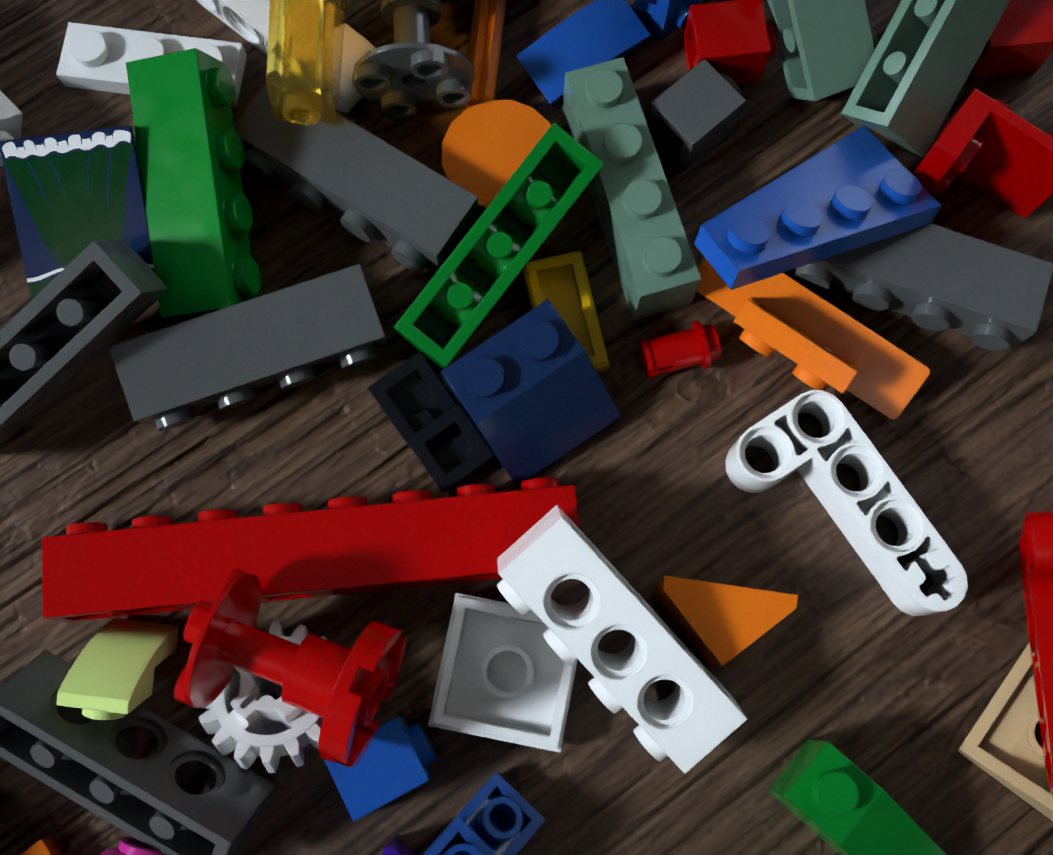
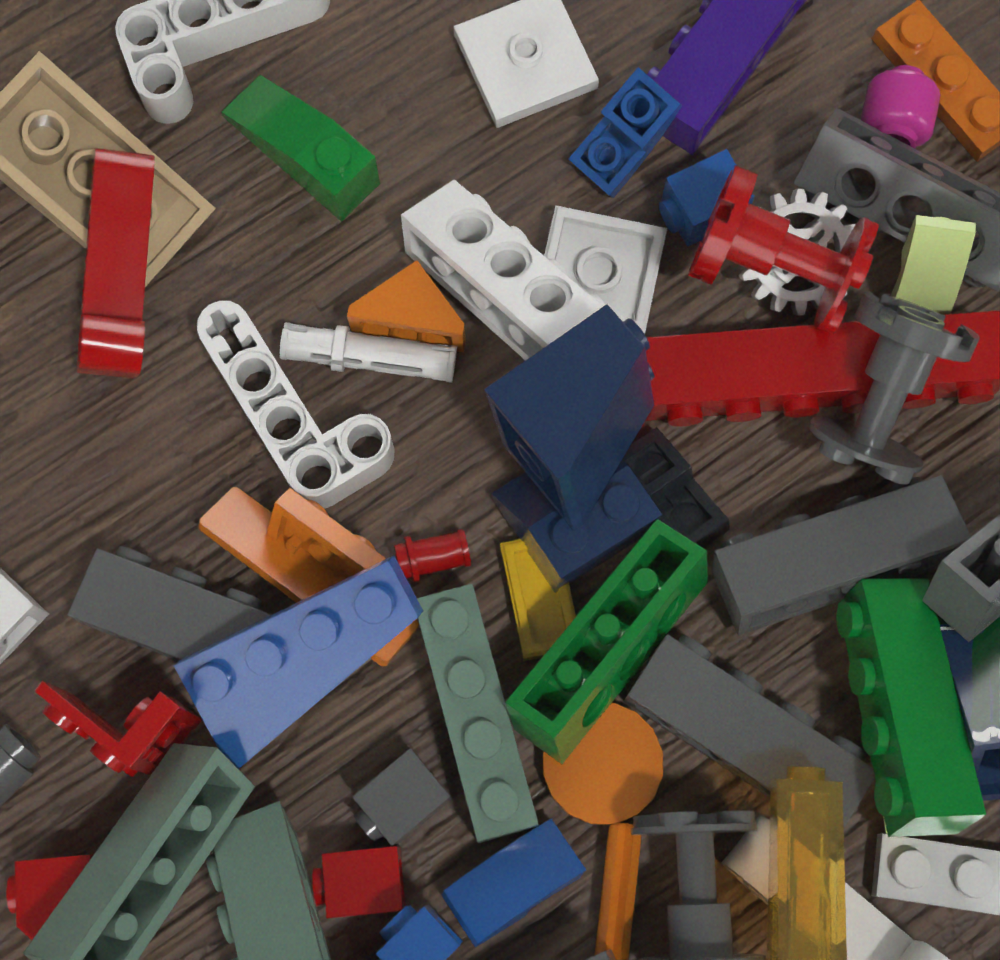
camera: 175 degrees left, 0 degrees up
(153, 551) = (900, 365): none -> dark grey piece
(540, 447) = (576, 410): none -> dark blue slope
(769, 570) = (361, 351): none -> white pin

